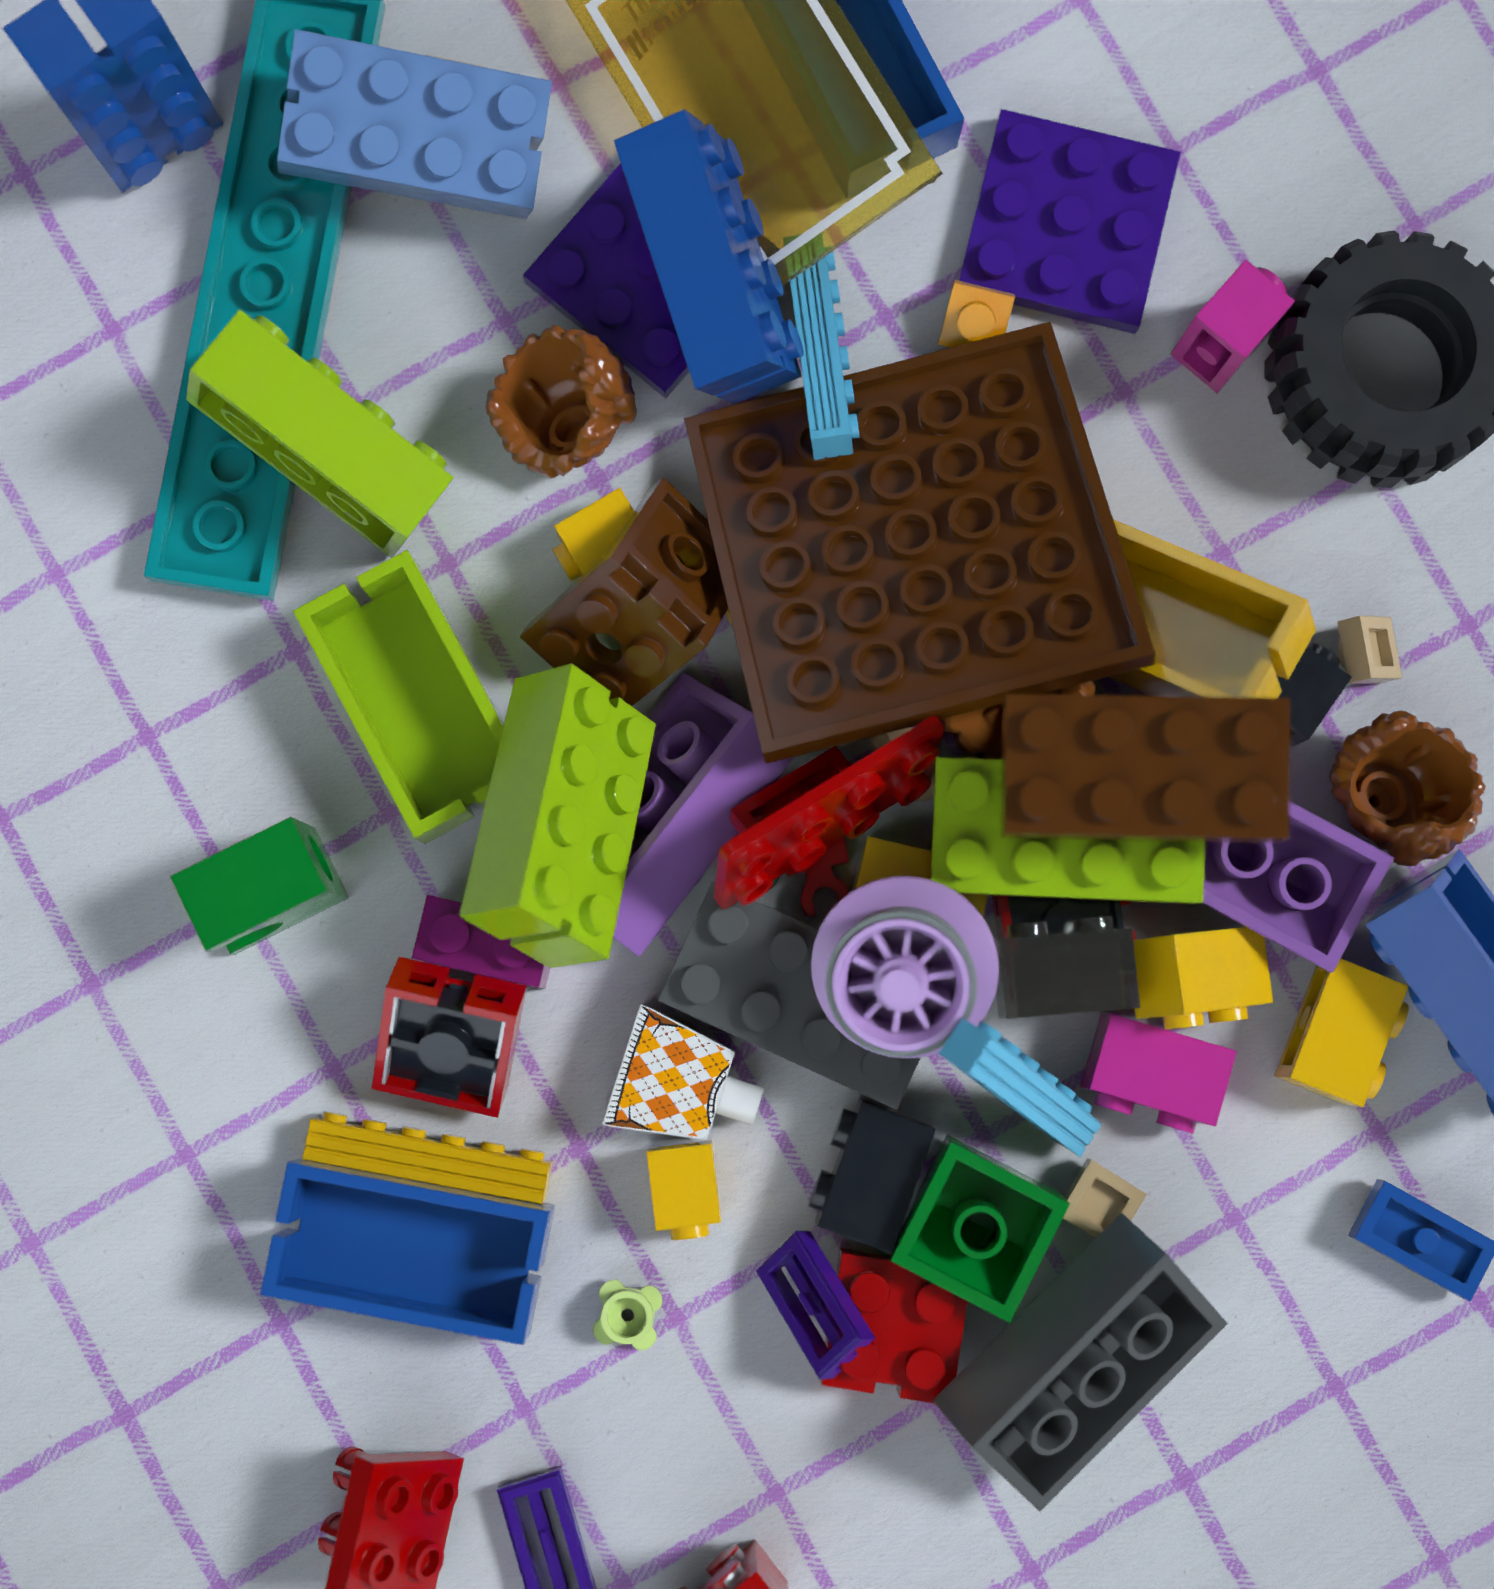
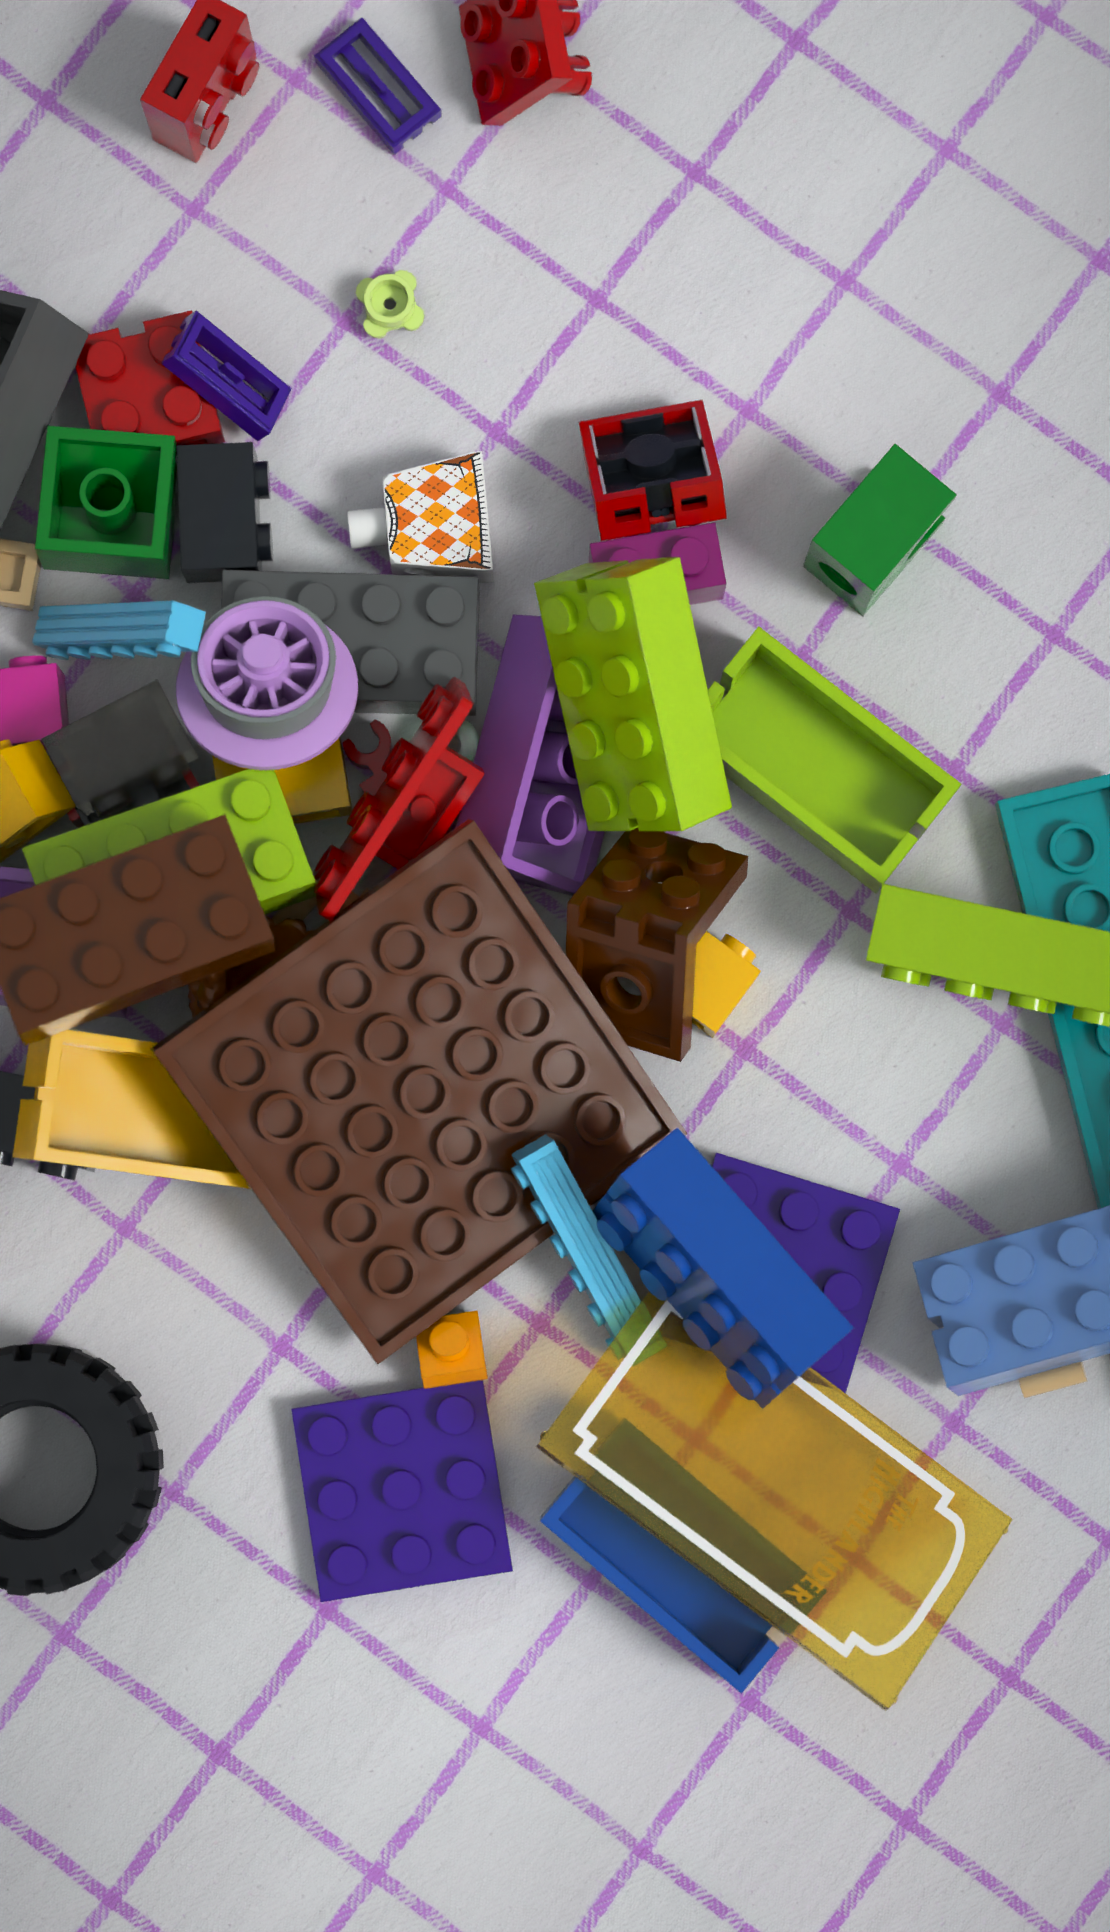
camera: 160 degrees right, 0 degrees up
(408, 1251) = (605, 274): blue piece -> none
(427, 1159) = (626, 363): yellow piece -> none
(560, 401) = (806, 1091): dark orange hair -> none
(684, 1189) = (385, 429): yellow brick -> none
(1232, 325) = (201, 1434): dark pink brick -> none

